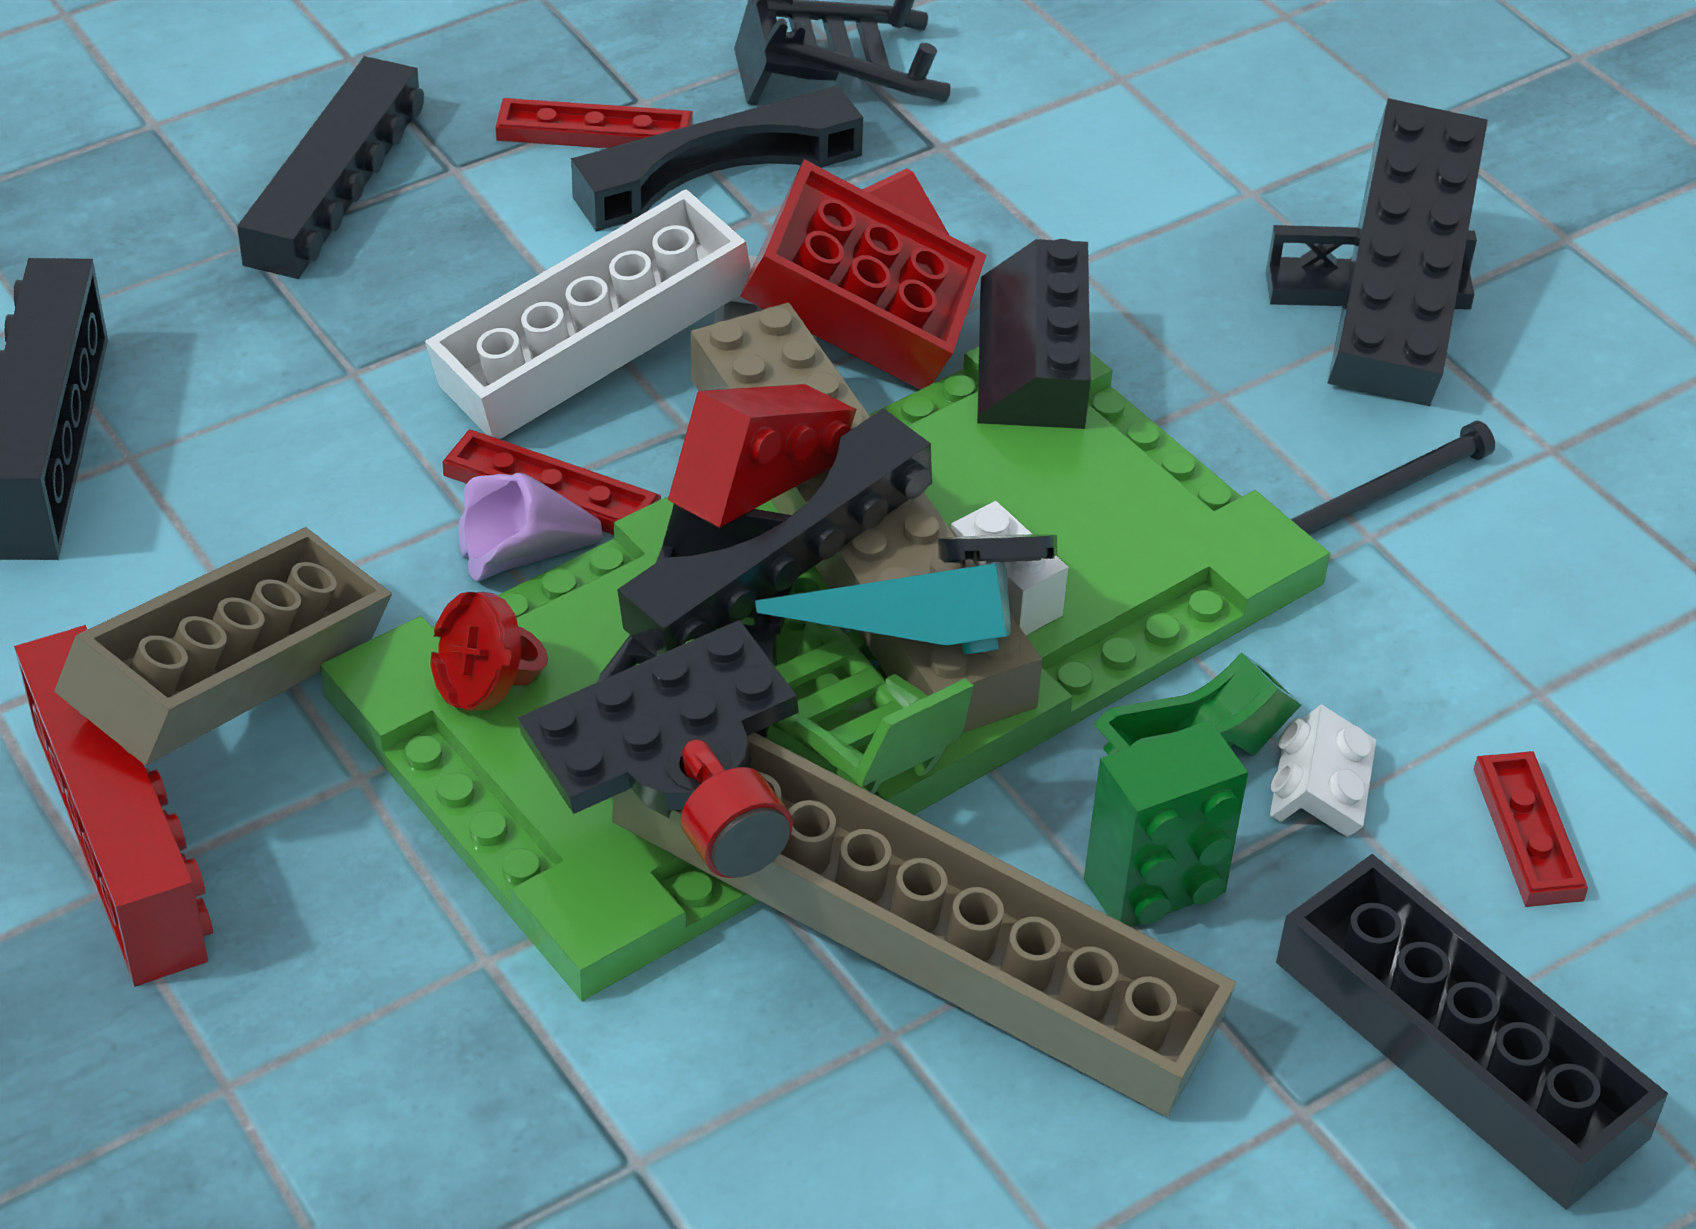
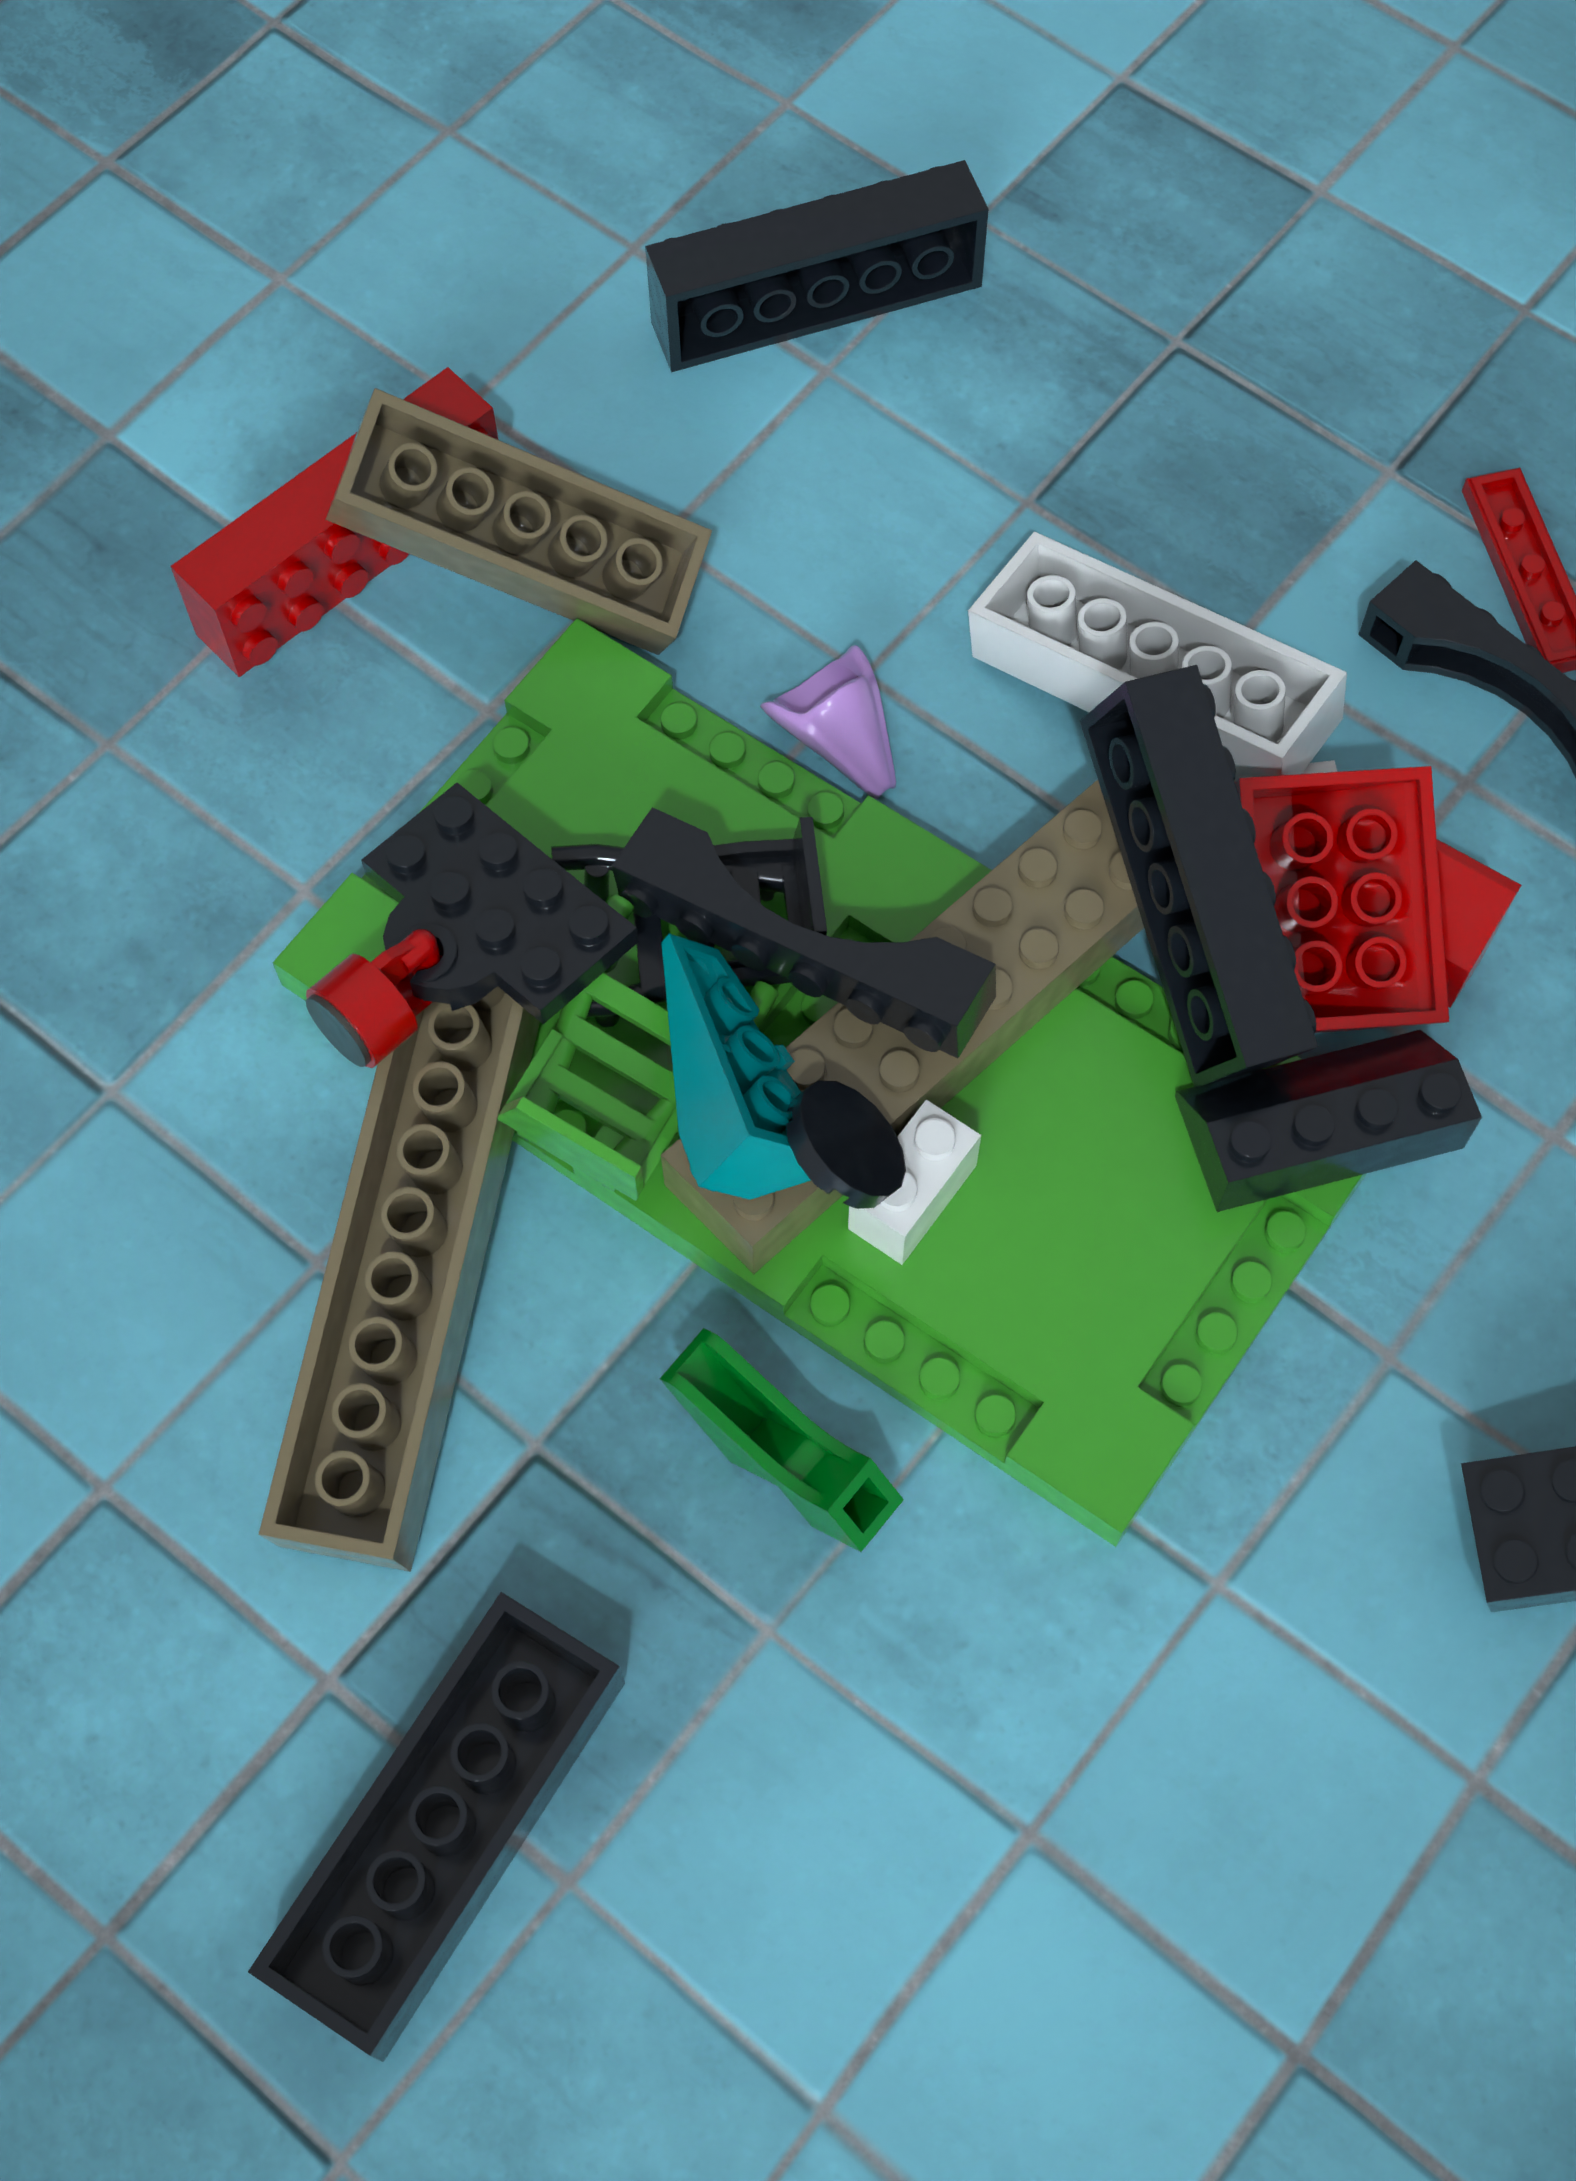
camera: 75 degrees right, 20 degrees up
(330, 168) = (1316, 357): black brick -> none
(482, 652) = (595, 737): red tile -> none
(596, 493) = (933, 726): red tile -> none
(754, 447) = (896, 863): red wedge -> none
(847, 294) = (1198, 877): none -> black brick
(1164, 824) = (578, 1435): green brick -> none
(1324, 770) = (790, 1604): white bracket -> none
(1474, 441) = (1308, 1586): black bar -> none
(1530, 829) = (798, 1855): red tile -> none

